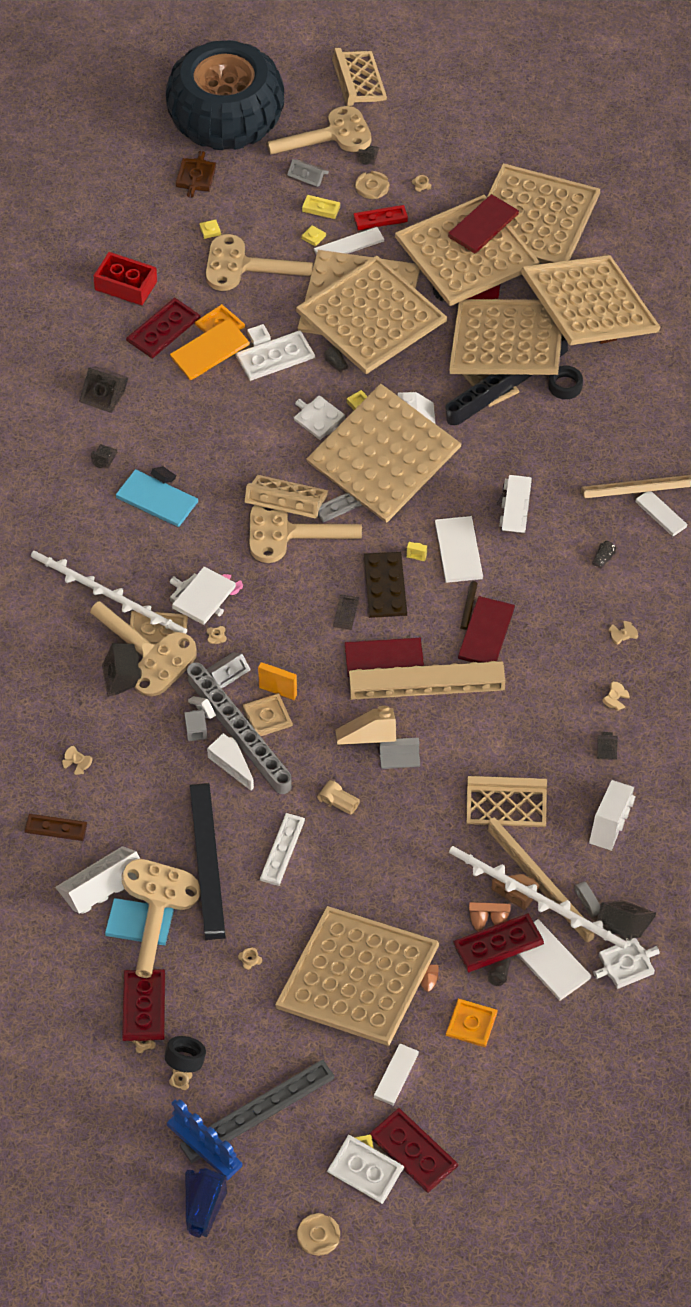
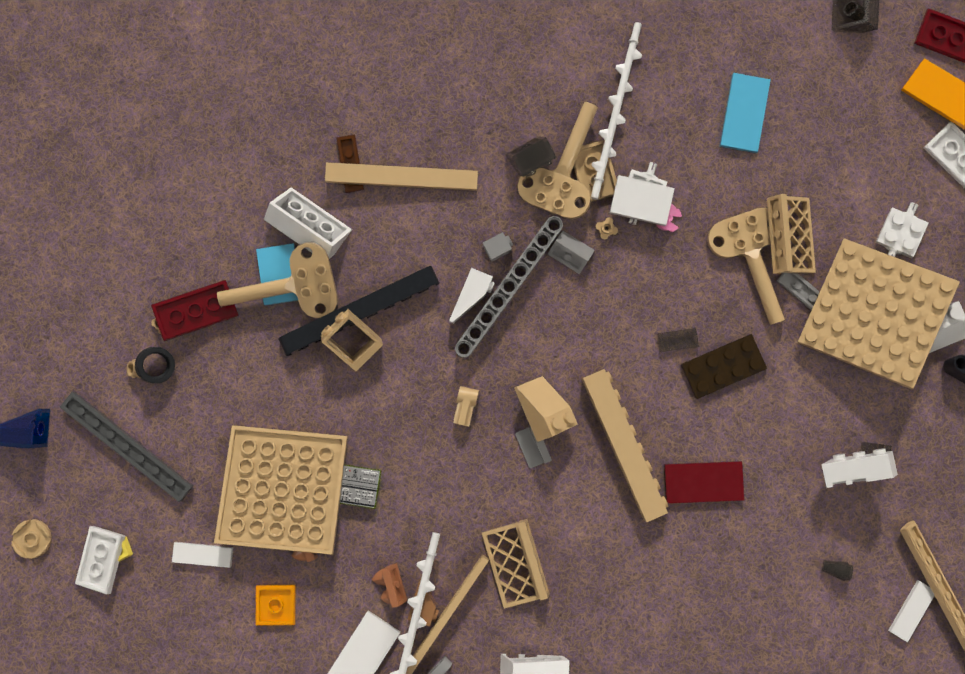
camera: 75 degrees right, 30 degrees up
(73, 755) = (426, 155): tan piece -> none
(89, 785) = (401, 176): none -> tan tile
(103, 456) = (774, 43): clear smoke bracket -> none
(163, 474) = (773, 108): black tile -> none
(203, 704) = (519, 245): white tile -> none
(203, 1140) = (70, 414): blue fence -> none
(246, 853) = (364, 353): none -> tan window
(250, 952) = (274, 380): tan plate -> none
(267, 715) = (535, 308): tan tile -> none
(277, 681) = (568, 303): light orange tile -> none
(282, 849) = (396, 373): white tile -> none
(356, 399) = (937, 263): light yellow plate -> none
(382, 907) = (360, 486): none -> light grey tile
(383, 654) = (639, 394): dark red tile -> none
(413, 1149) = (134, 594): dark red tile -> none
(417, 551) = (773, 384): light yellow plate -> none
(458, 549) = (792, 423): white tile -> none
(469, 605) = (728, 454): dark brown bar -> none
(498, 942) = (360, 605): dark red tile -> none
(499, 972) = (334, 614): clear smoke cone -> none
(607, 746) = (611, 640): clear smoke bracket -> none
(616, 691) = (679, 630): tan piece -> none
(628, 632) = (754, 621): tan piece -> none

